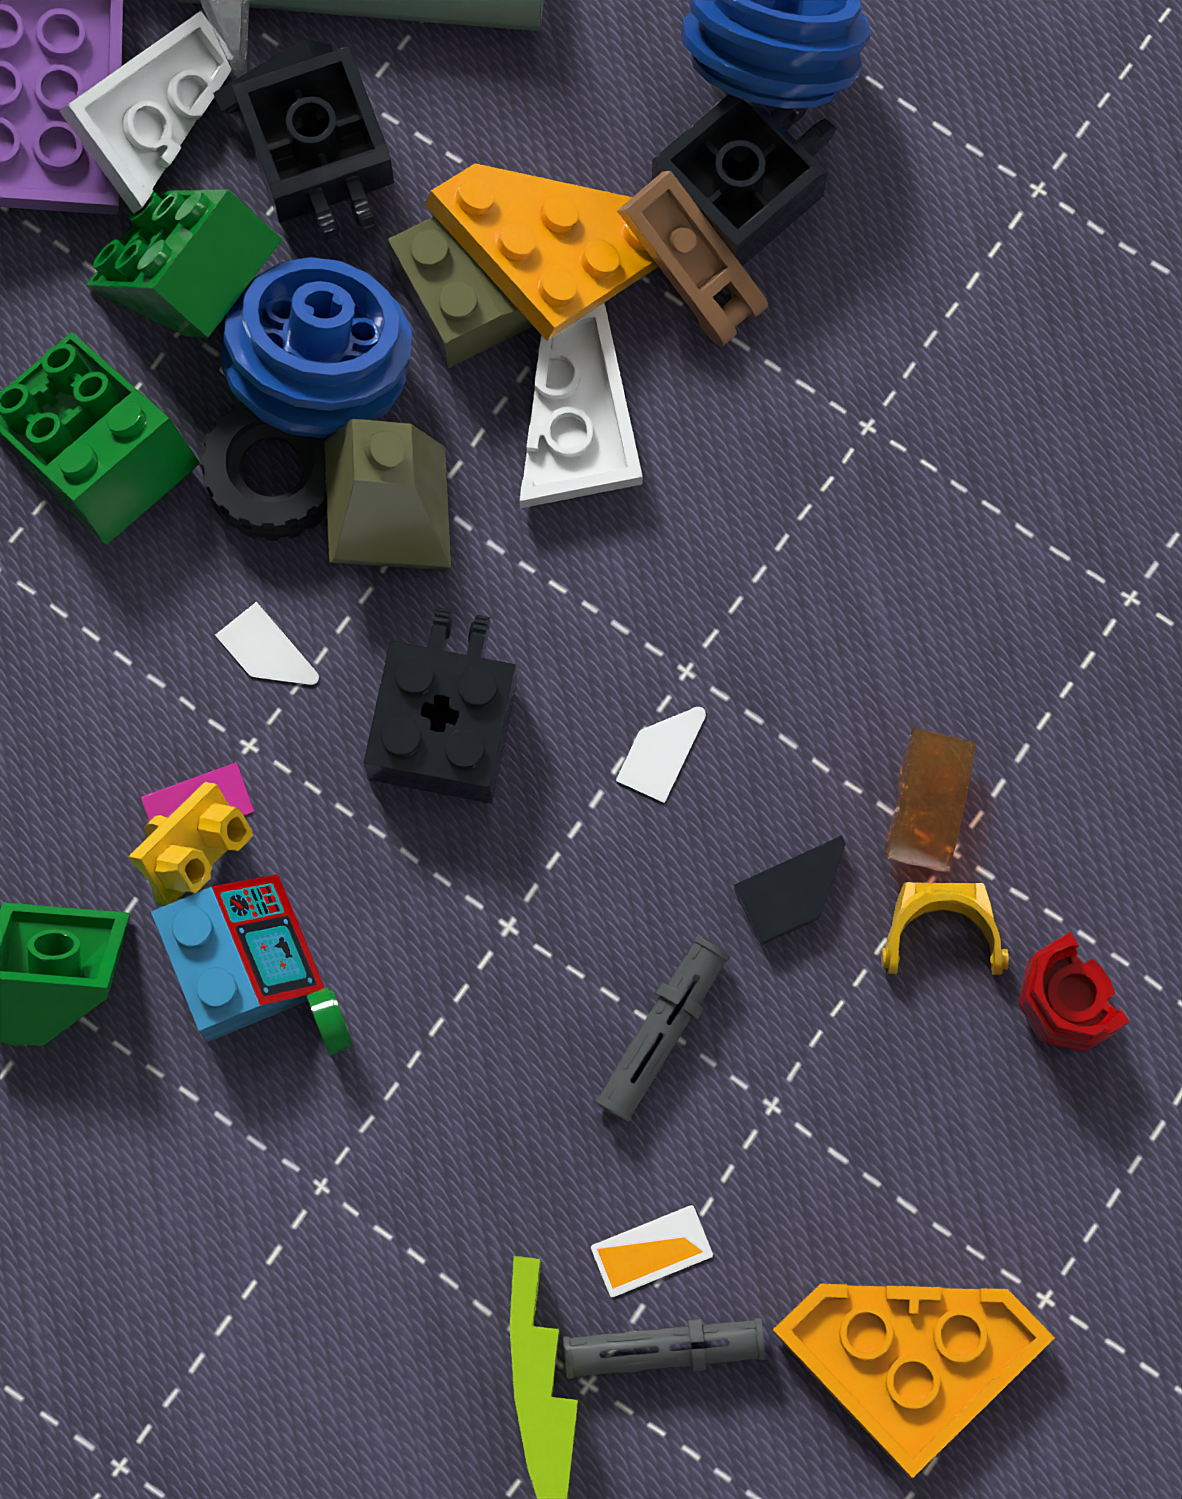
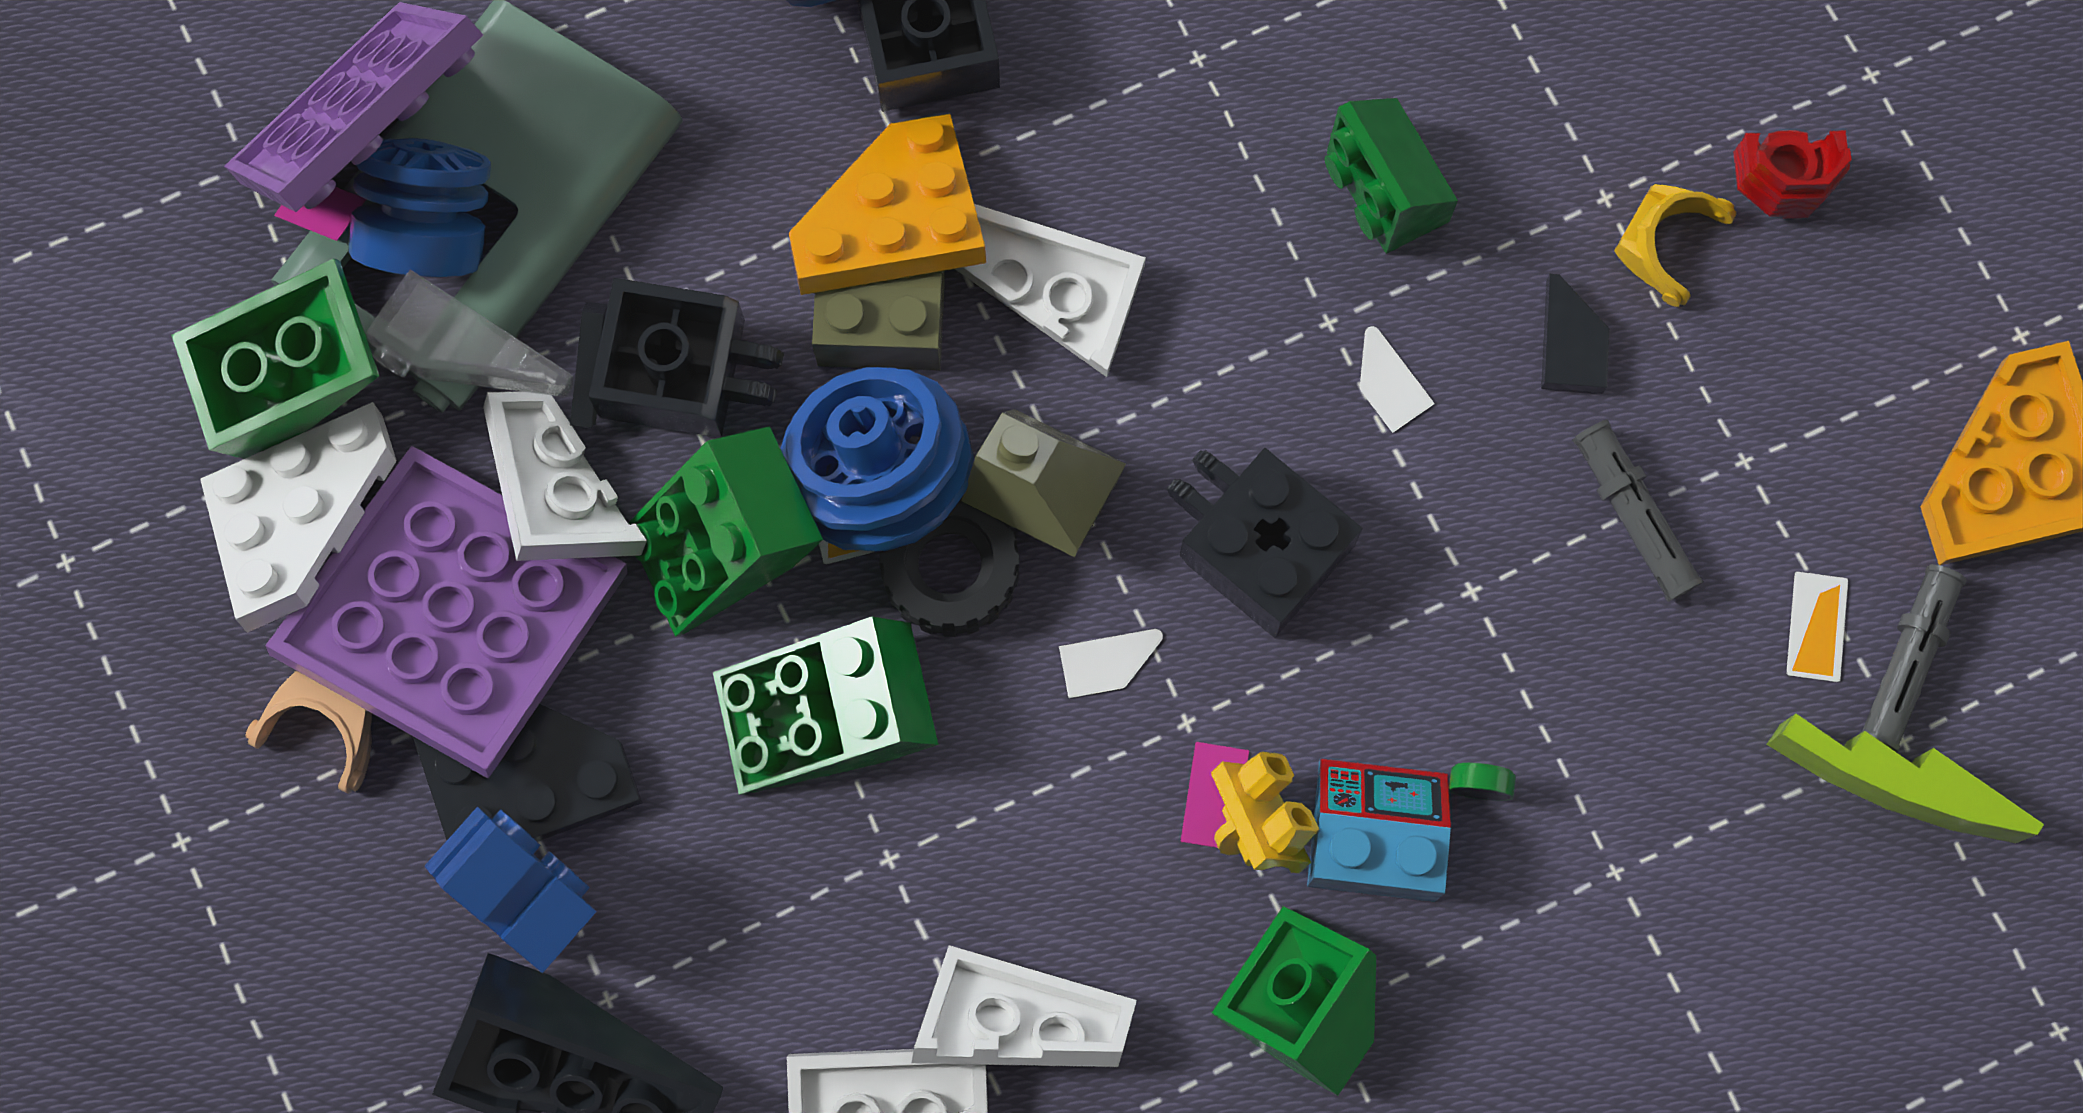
camera: 60 degrees left, 0 degrees up
(692, 256) = (976, 105): medium nougat plate -> none
(848, 639) = (1387, 172): none -> green slope
(930, 800) = (1553, 175): clear orange slope -> none

